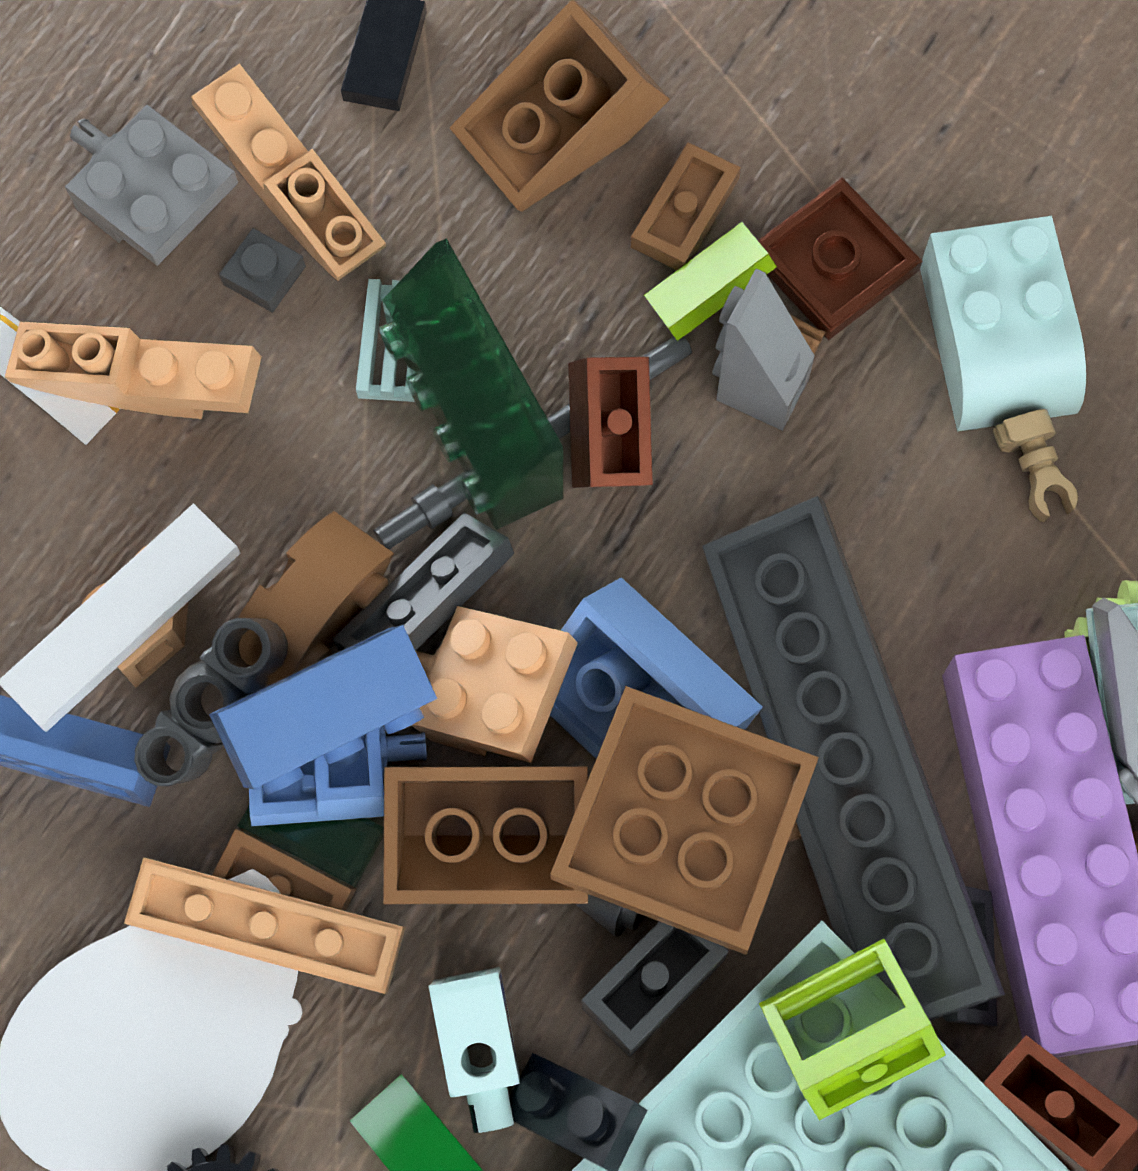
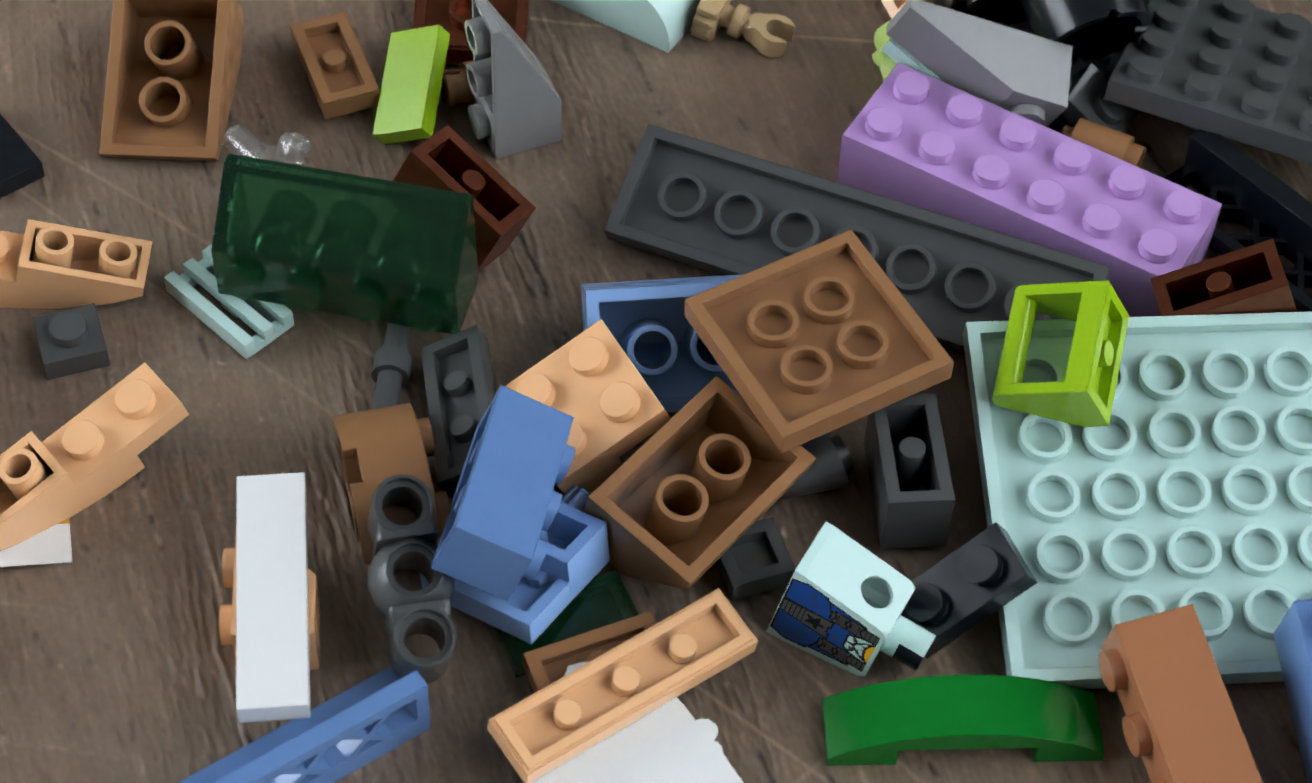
camera: 55 degrees left, 20 degrees down
(478, 928) = (756, 562): none -> dark grey plate
(550, 241) = (290, 149): none -> clear arm

